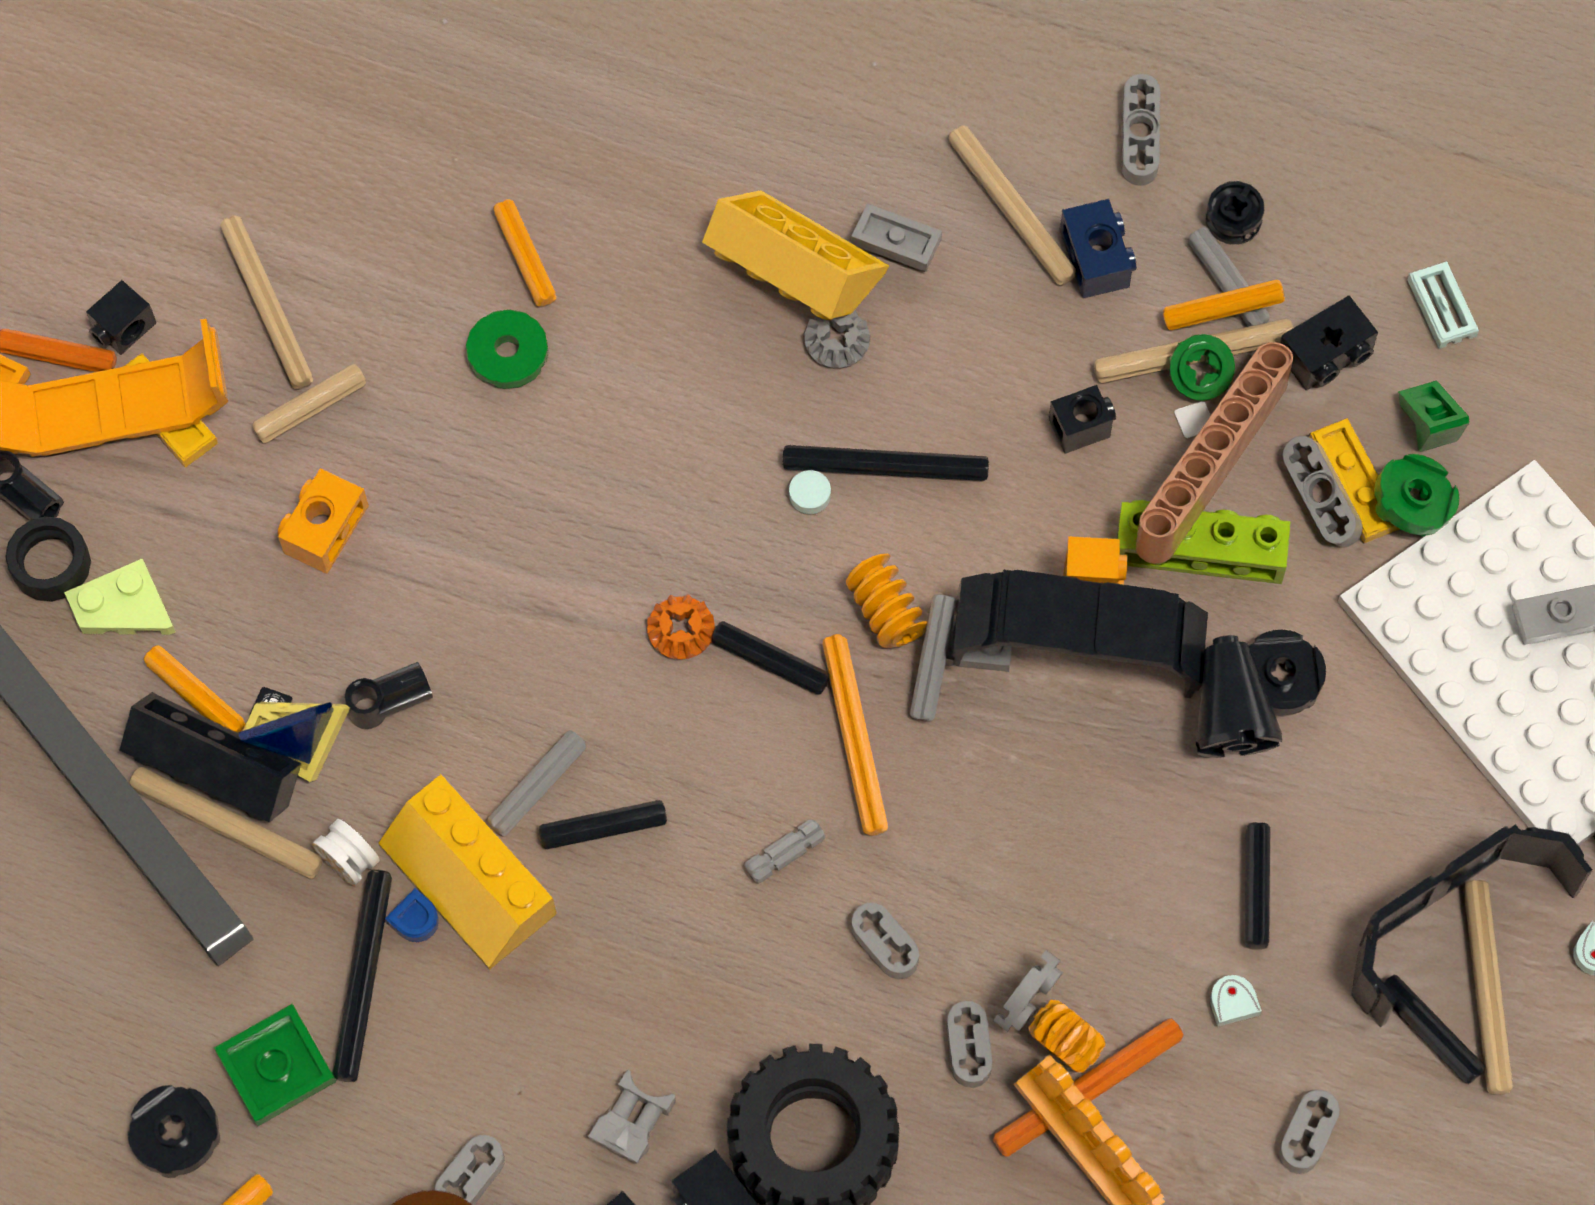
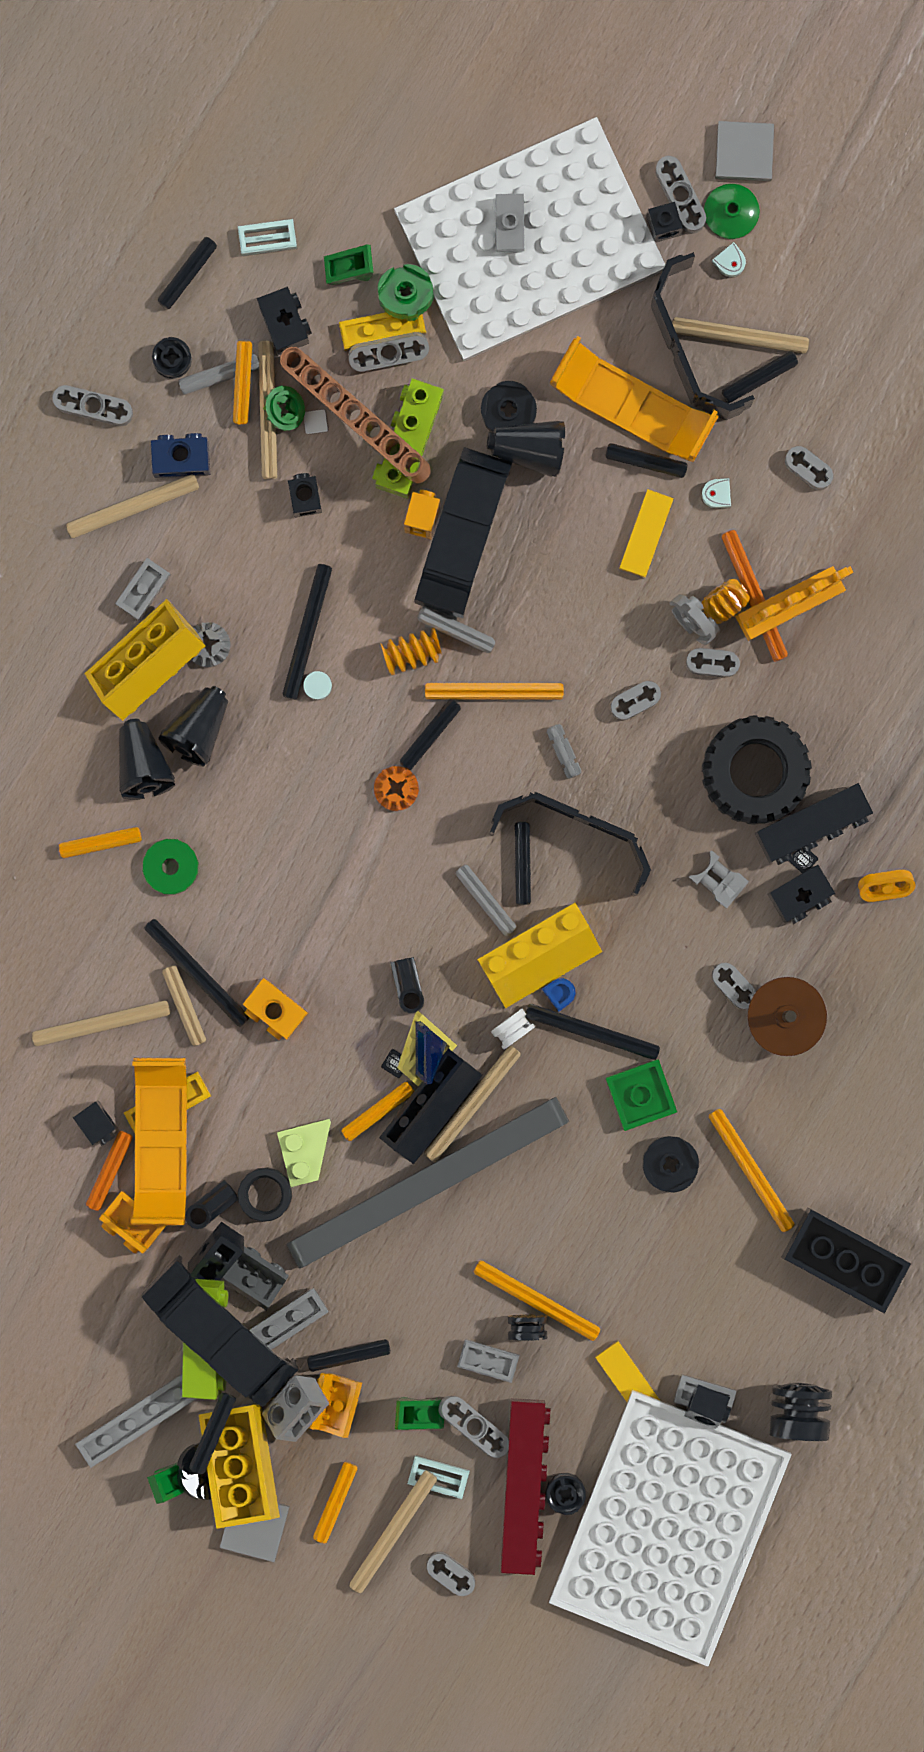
camera: 85 degrees left, 20 degrees up
(361, 407) = (196, 972): none -> black axle
(623, 995) = (590, 821): none -> black windscreen
(645, 276) = (141, 763): none -> black cone
(715, 337) = (196, 727): none -> black cone
(1145, 907) = (646, 533): none -> yellow tile
(1341, 835) = (631, 403): none -> light orange windscreen
(1361, 211) = (187, 272): none -> black axle

